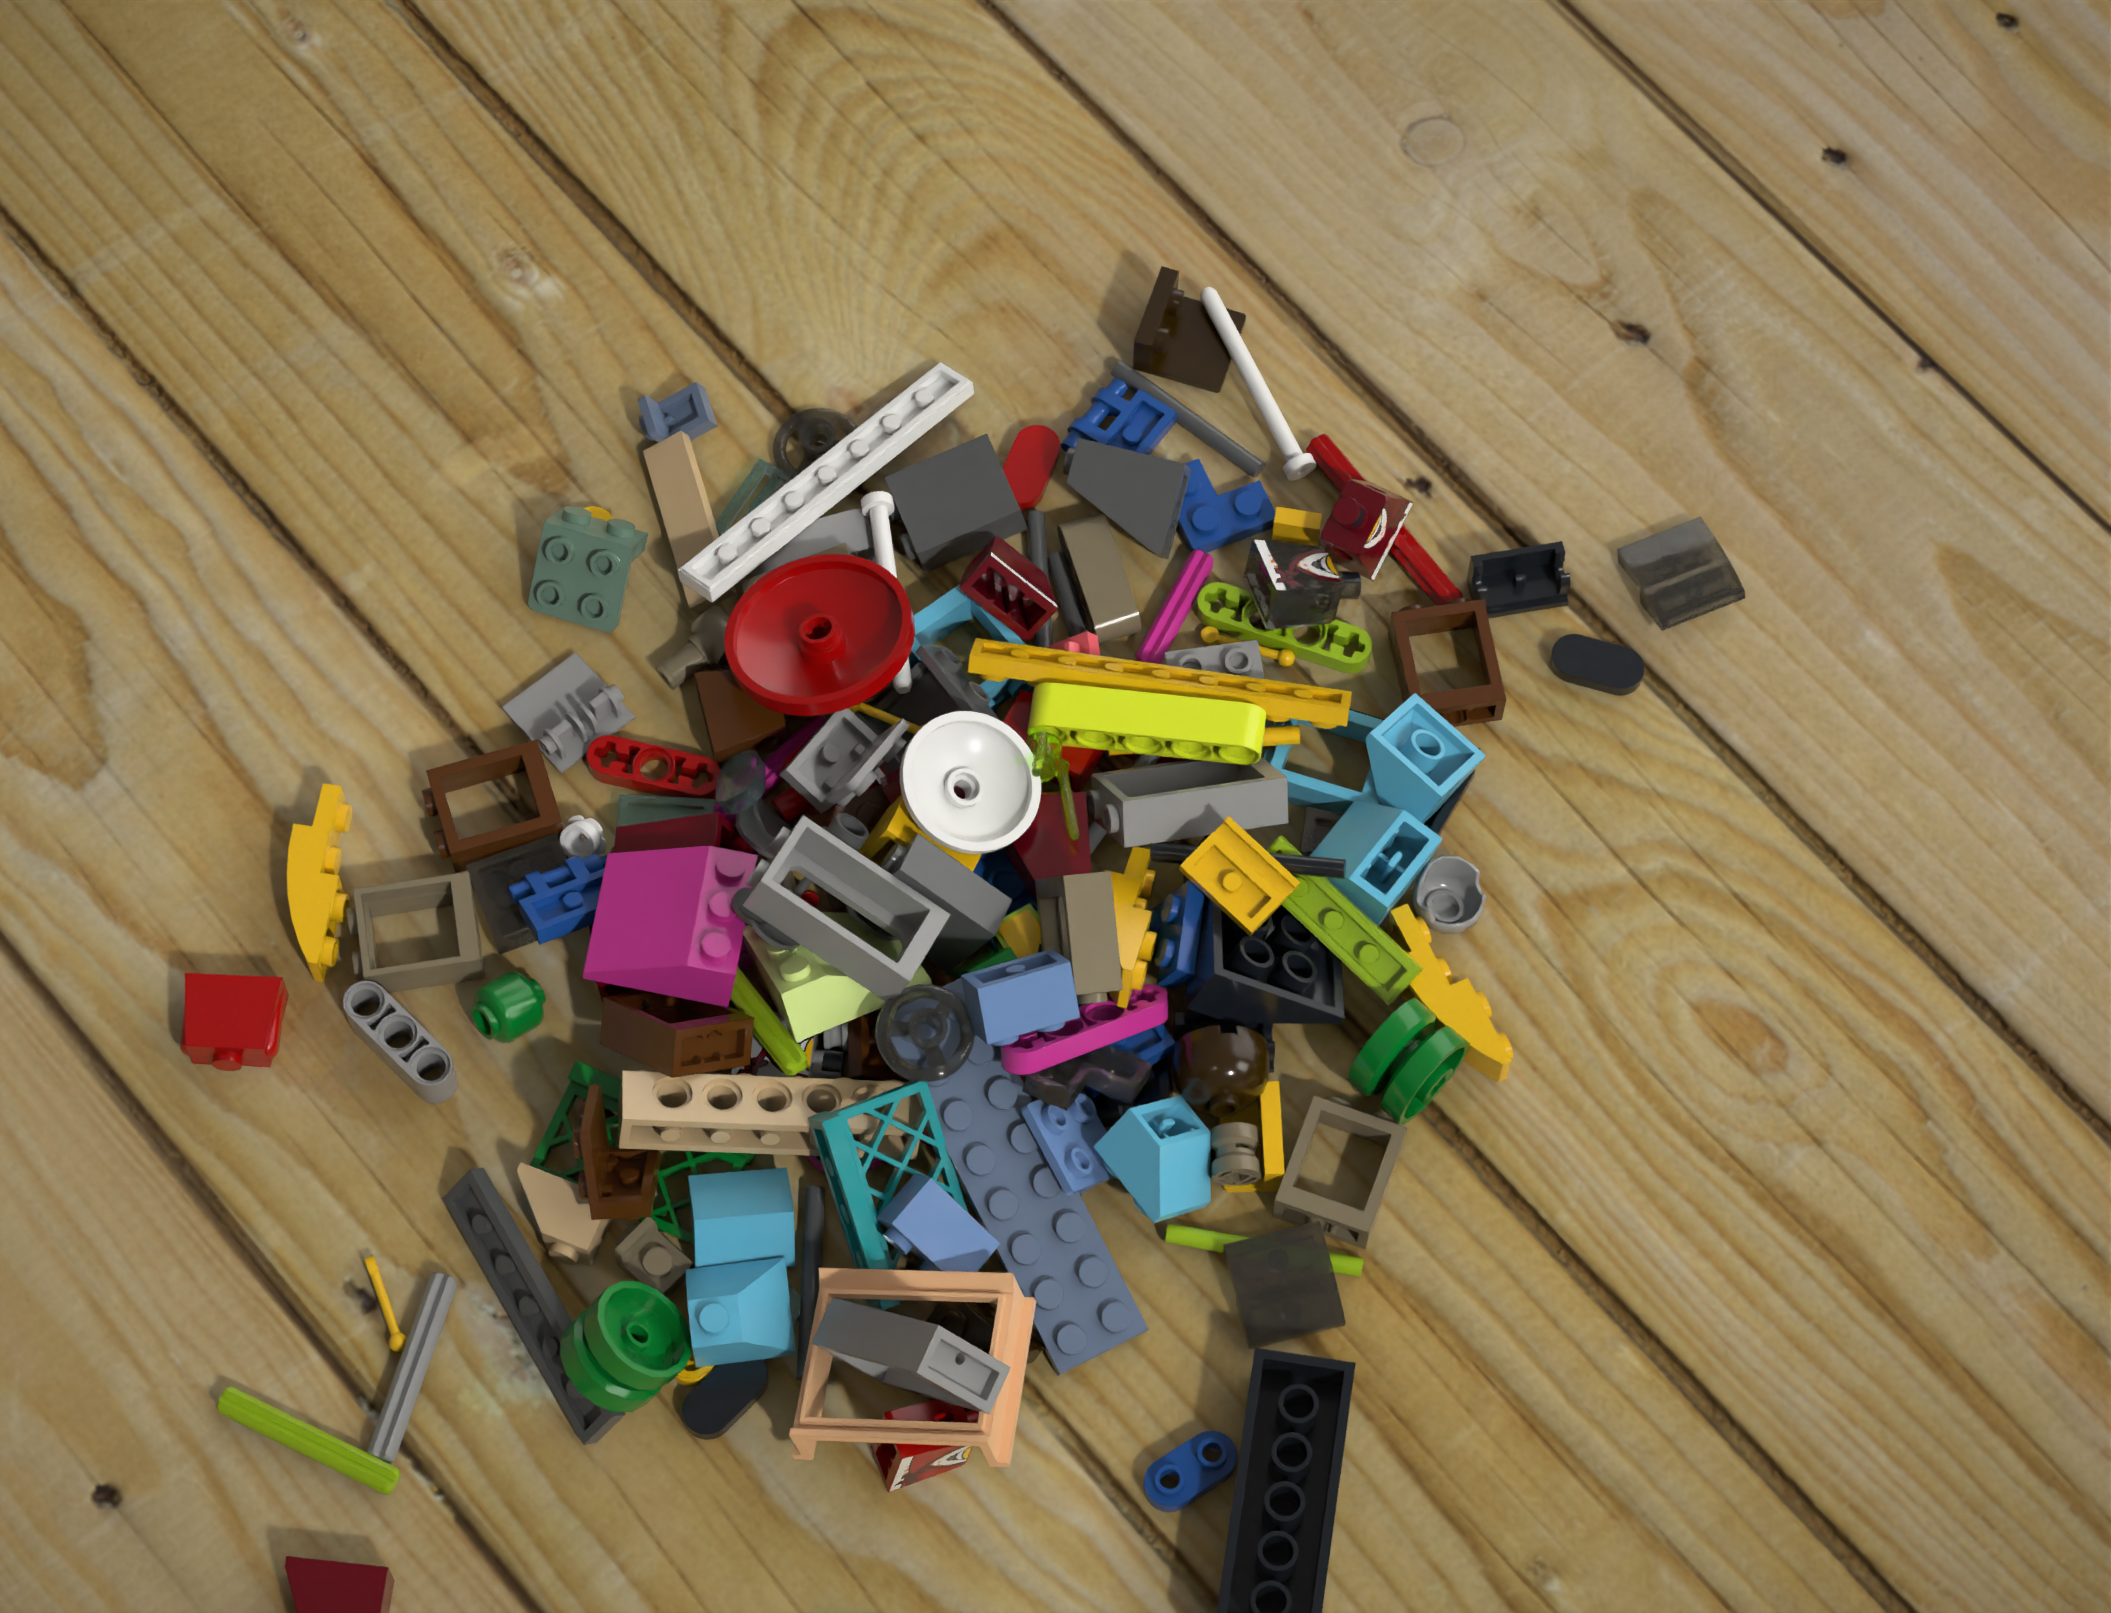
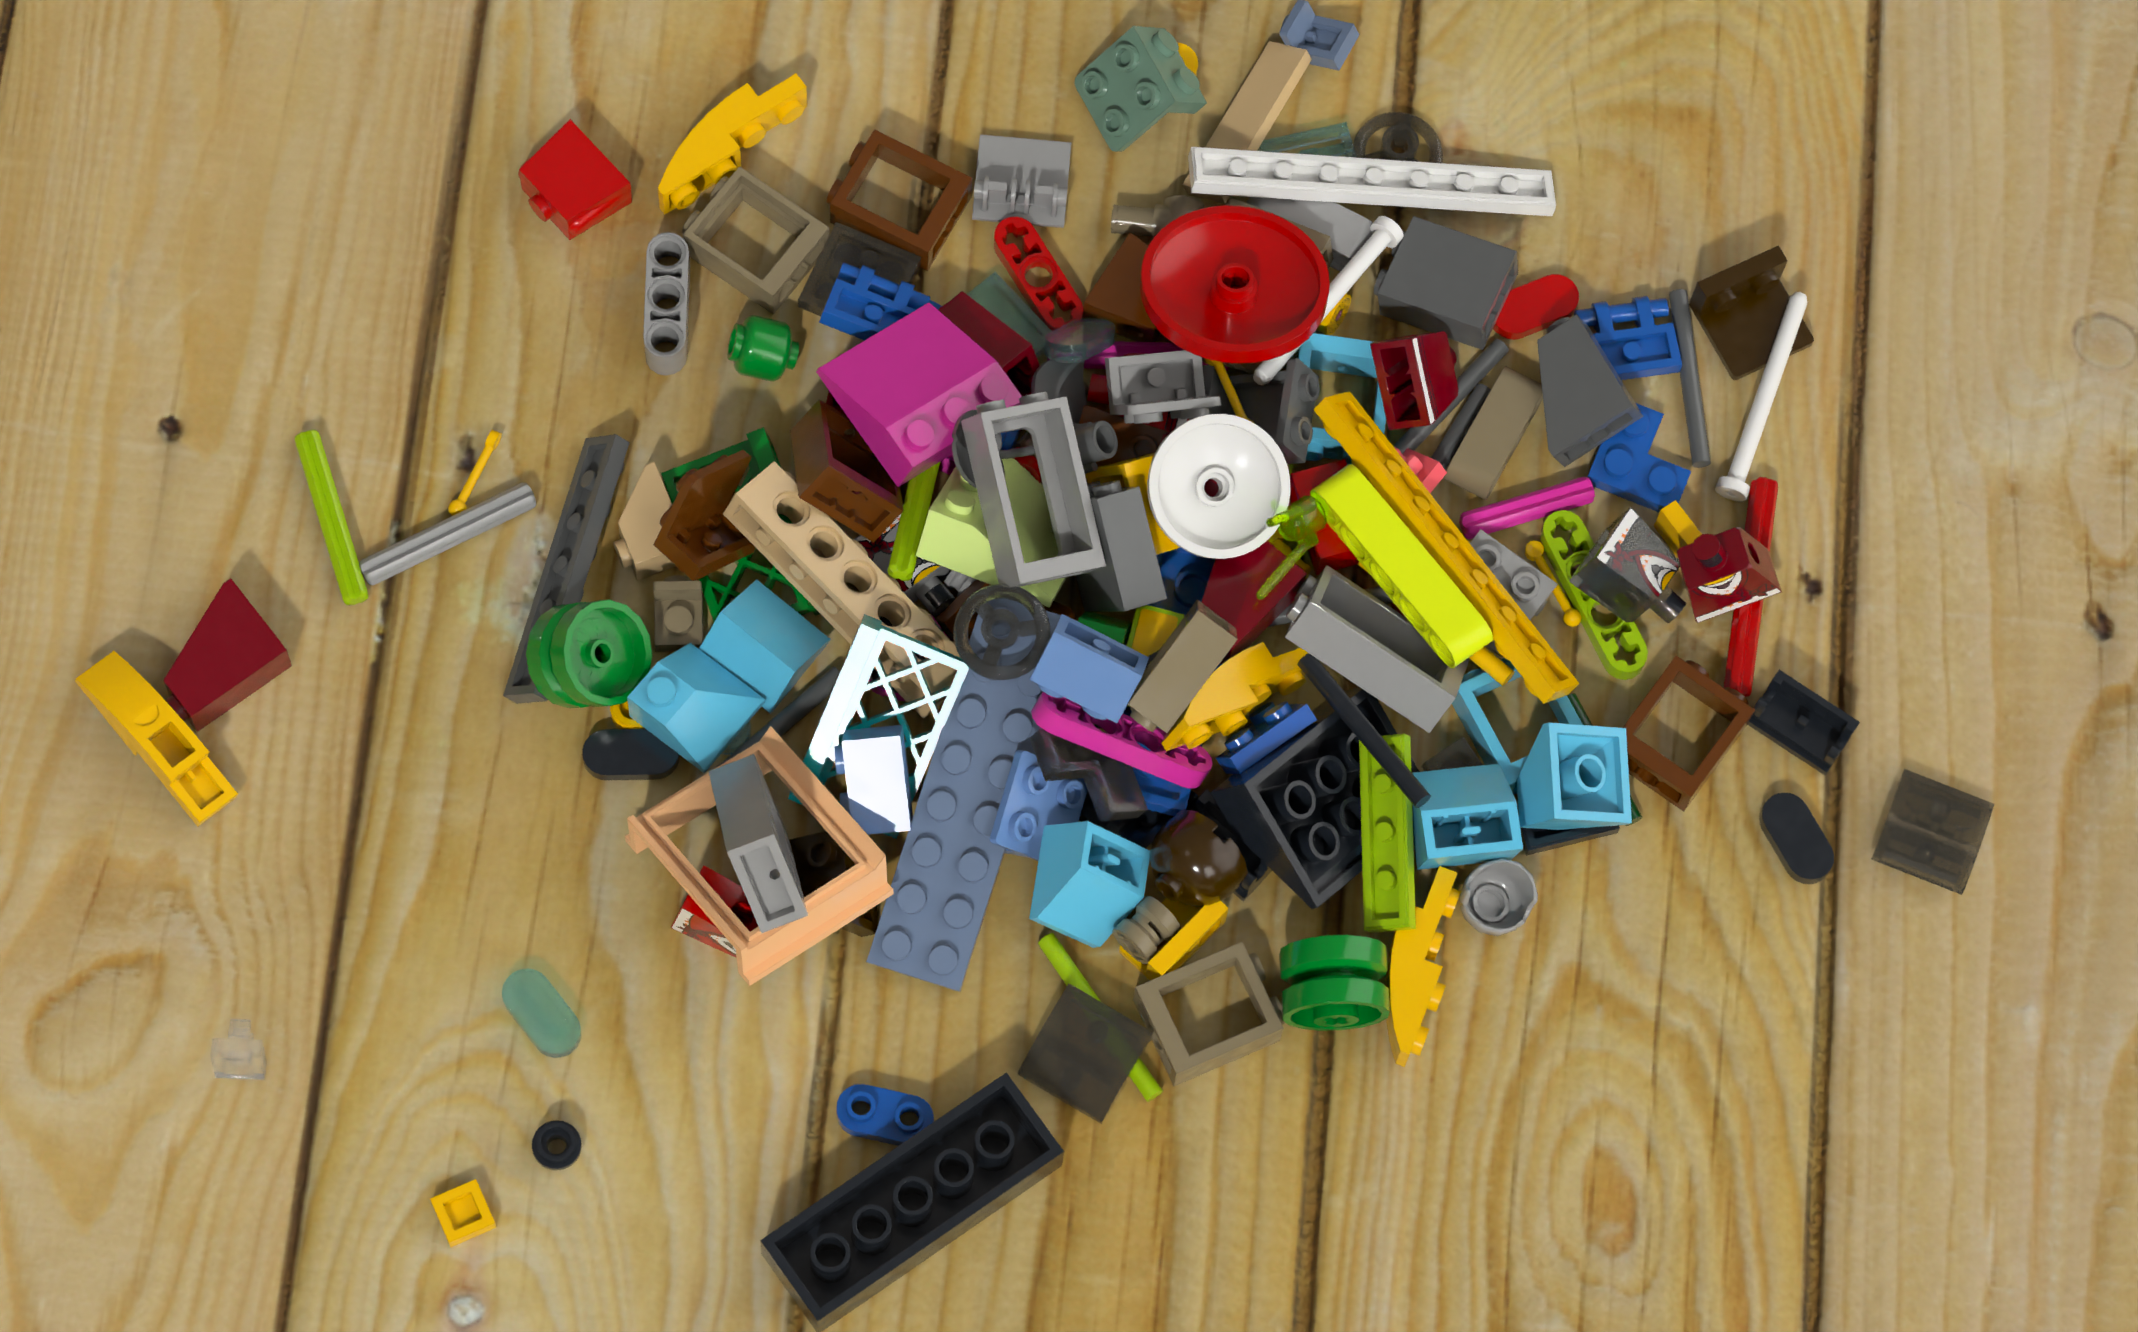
camera: 40 degrees right, 5 degrees up
(574, 841) = (936, 278): white plate -> none
(1239, 876) = (1340, 733): yellow plate -> none

